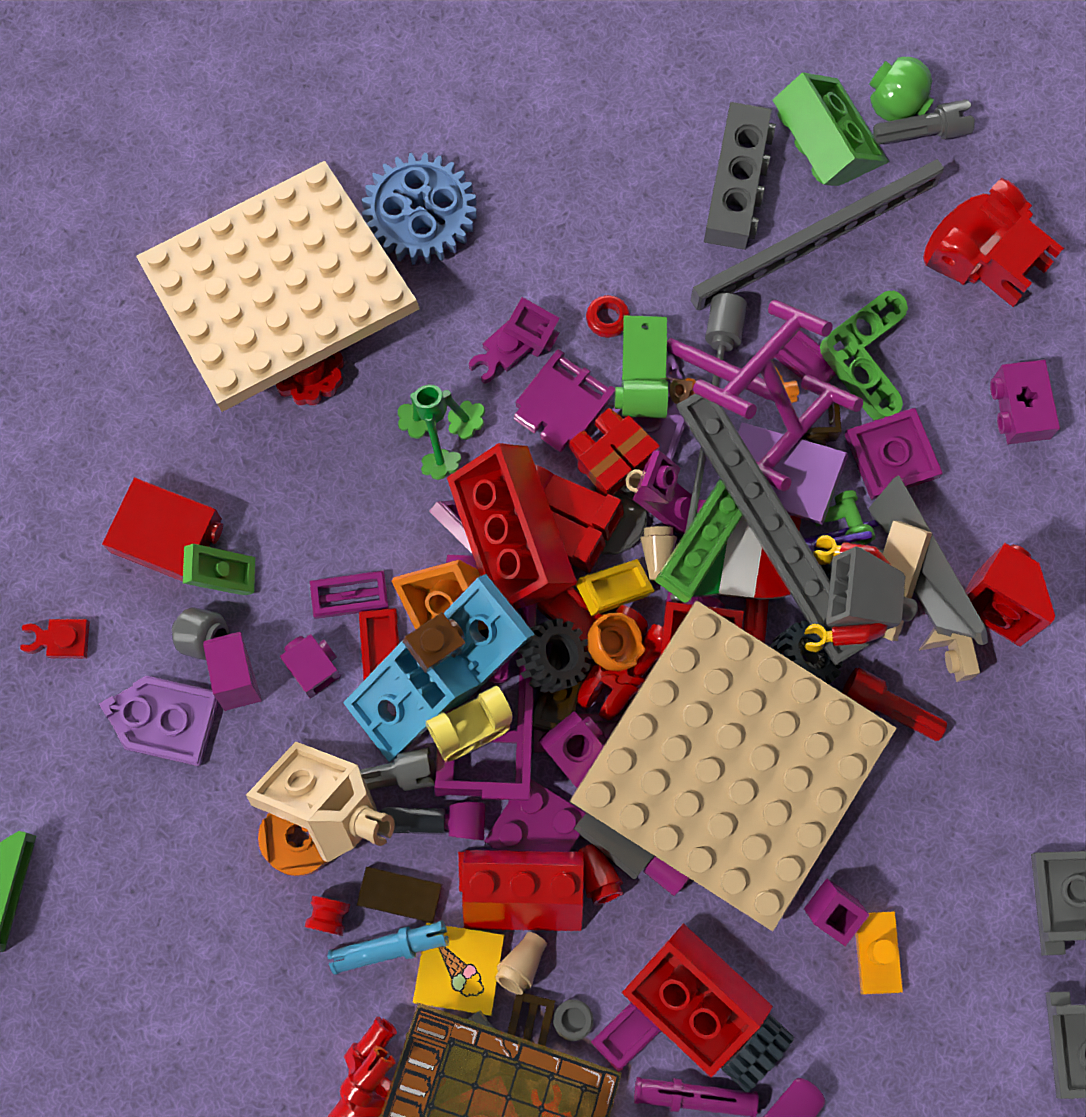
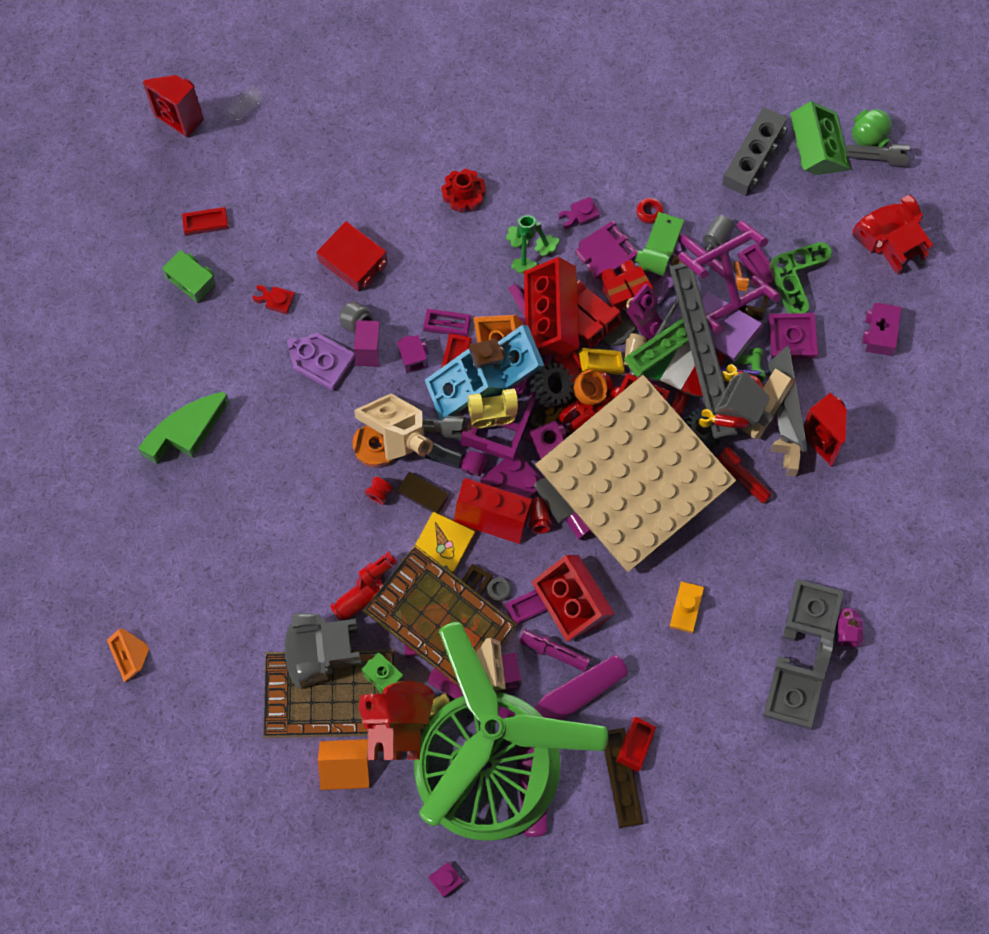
camera: 20 degrees right, 5 degrees down
(218, 569) = (377, 285): bright green plate -> none
(276, 285) = (460, 136): plate -> none
(404, 943) = (407, 517): dark azure pin -> none
(439, 185) = (573, 108): medium blue gear -> none
(520, 965) = (477, 550): tan cone -> none
(533, 326) = (602, 203): magenta bracket -> none
(758, 1054) = (597, 633): black bush -> none
(818, 234) = (792, 198): dark grey tile -> none
(836, 912) = (668, 574): magenta brick -> none

